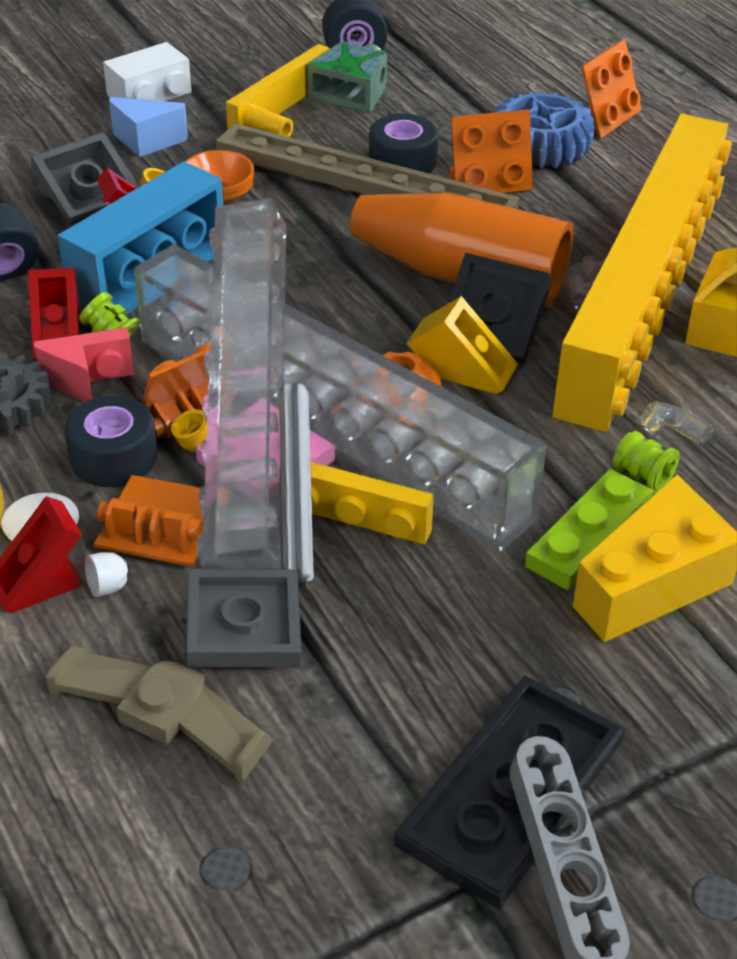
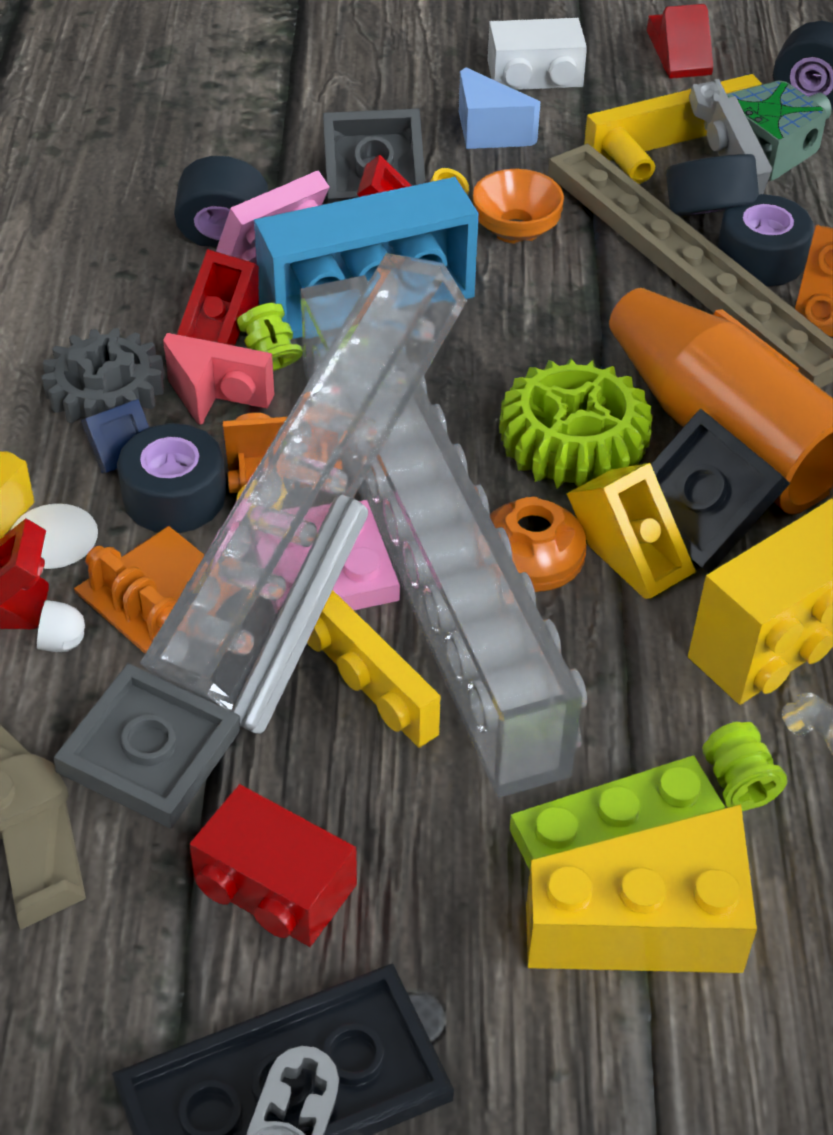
camera: 30 degrees right, 5 degrees up
(43, 246) = (239, 232): none -> bright pink plate
(43, 428) = (112, 430): none -> dark blue plate
(243, 39) = (682, 40): none -> red slope
(337, 89) = (728, 126): none -> light grey hinge
(348, 120) = (712, 184): none -> black wheel
(372, 299) = (574, 422): none -> lime gear
(399, 651) = (273, 865): none -> red brick

